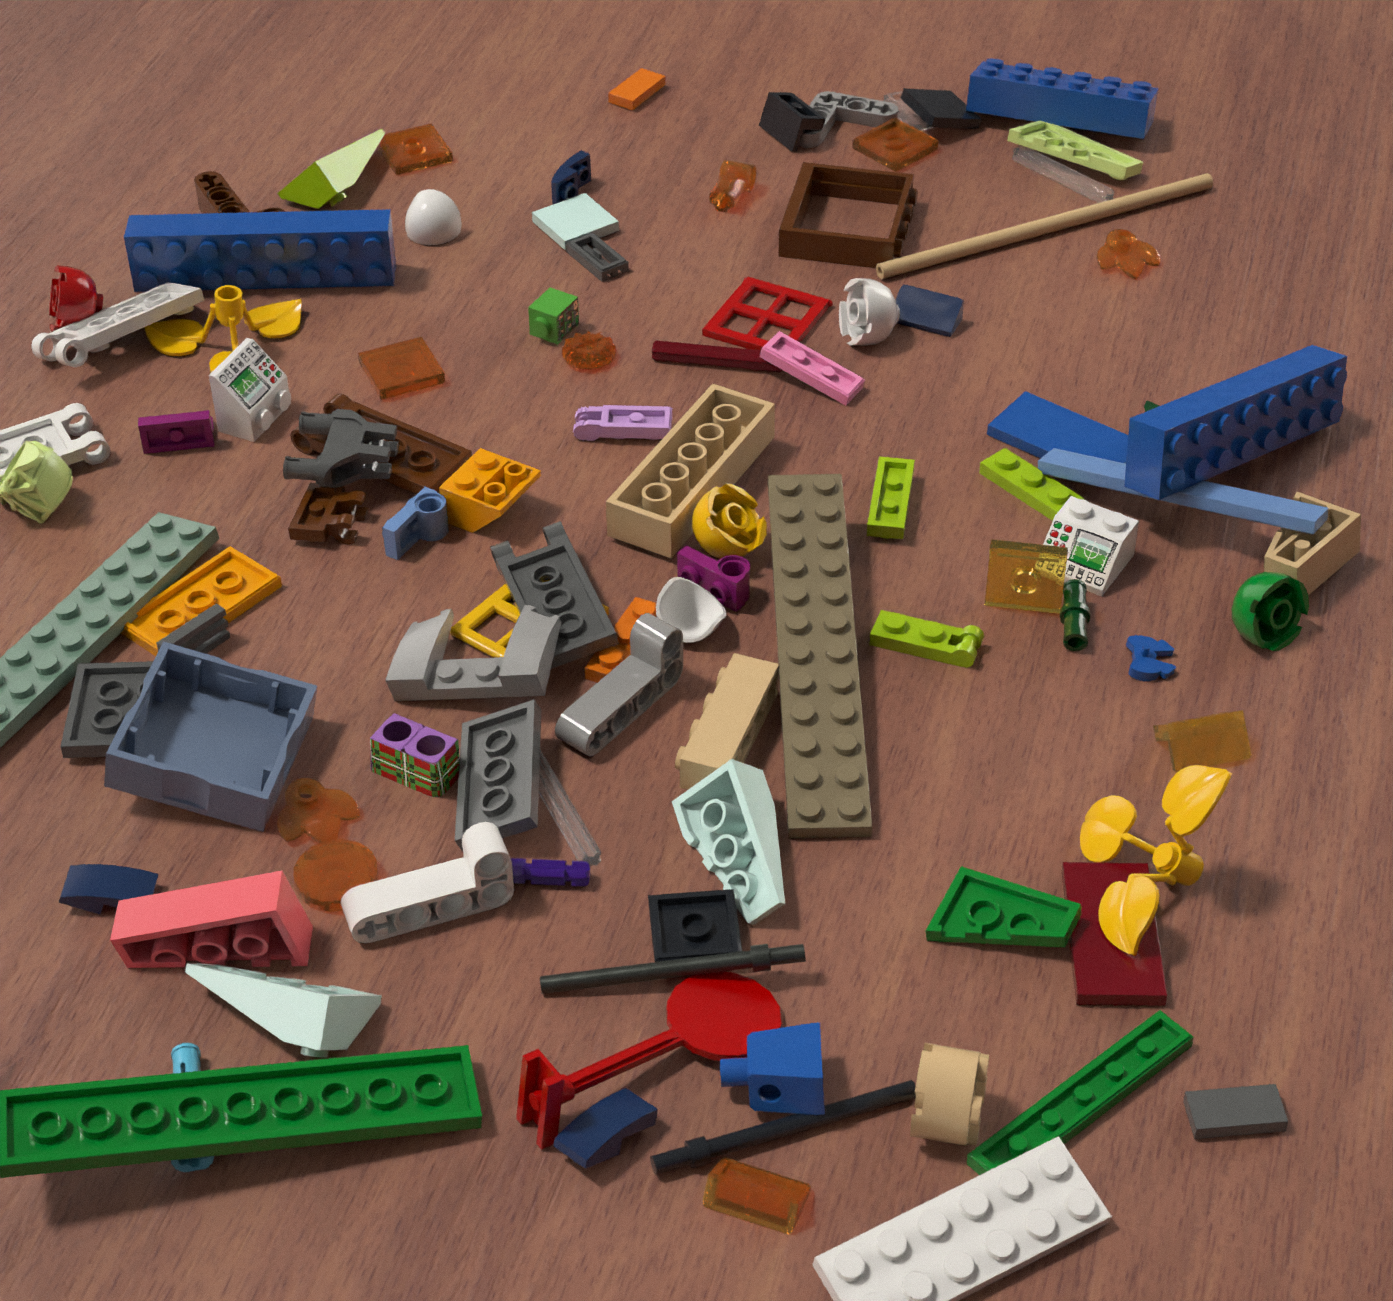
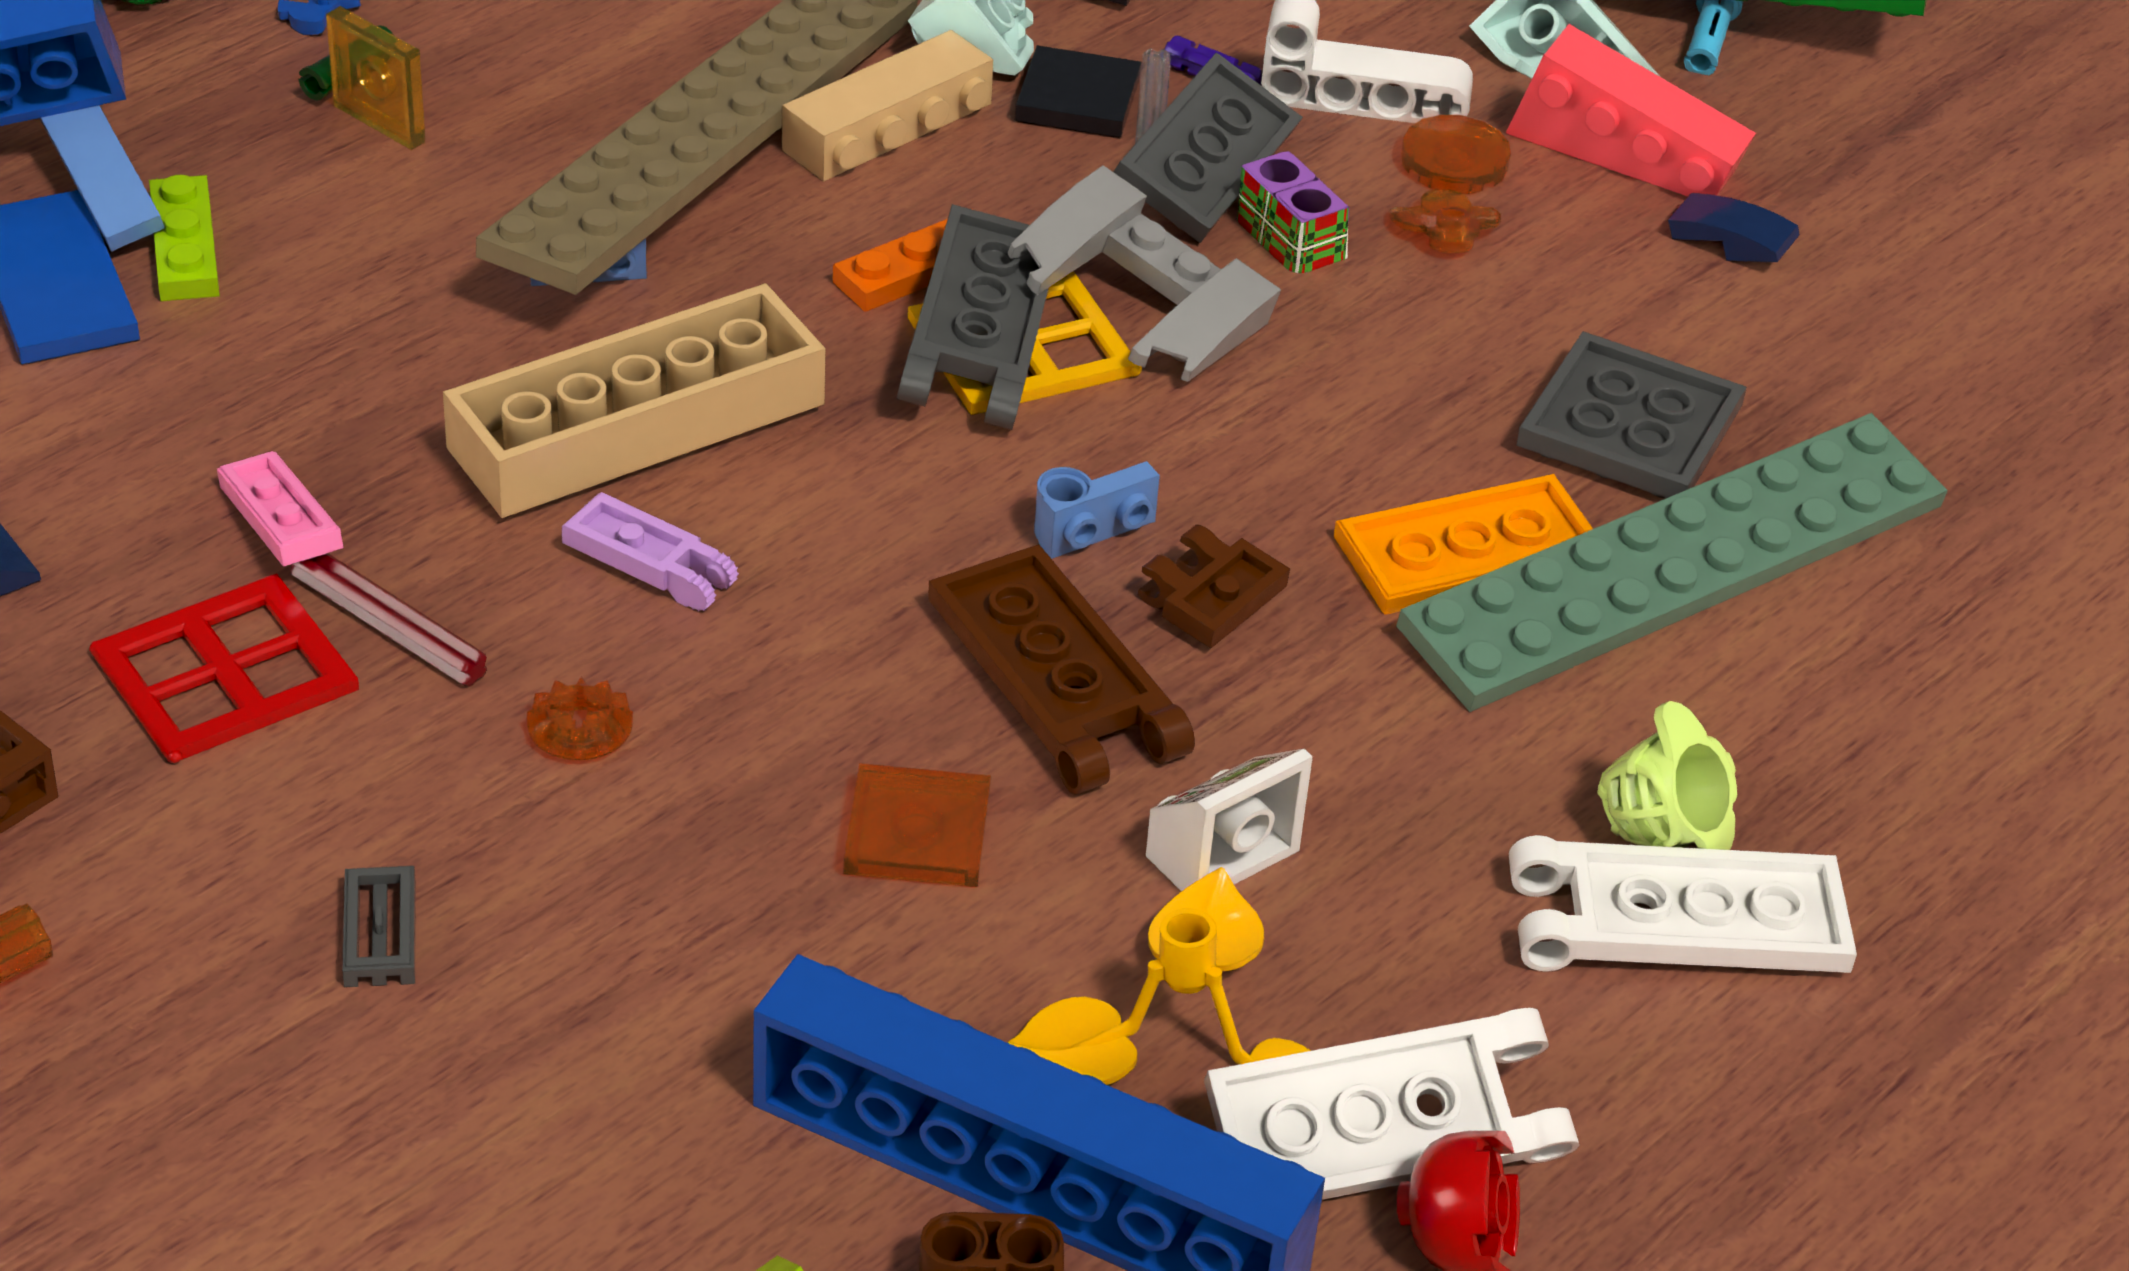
camera: 155 degrees left, 0 degrees up
(176, 431) = (1378, 845): magenta panel -> none
(201, 632) = (1509, 456): dark grey tile -> none
(211, 737) = (1546, 293): sand blue tile -> none
(349, 450) = (1133, 605): dark grey connector -> none
(432, 218) = (639, 1132): white helmet -> none
(485, 489) = (957, 494): light orange slope -> none
(553, 315) = (588, 789): bright green brick -> none
(571, 176) = (249, 1132): dark blue slope -> none
(575, 219) = (340, 1032): light aqua tile -> none
(626, 810) = (1078, 91): none -> black tile
(628, 689) = (997, 180): light grey beam -> none
(689, 609) = (813, 232): white helmet -> none
(725, 579) = (734, 257): magenta plate -> none
(727, 522) = (675, 287): yellow cylinder -> none
(868, 312) = (96, 538): white cylinder -> none
(890, 498) = (393, 282): lime plate -> none
(926, 638) = (542, 114): lime plate -> none
(1097, 542) = (229, 117): white slope -> none

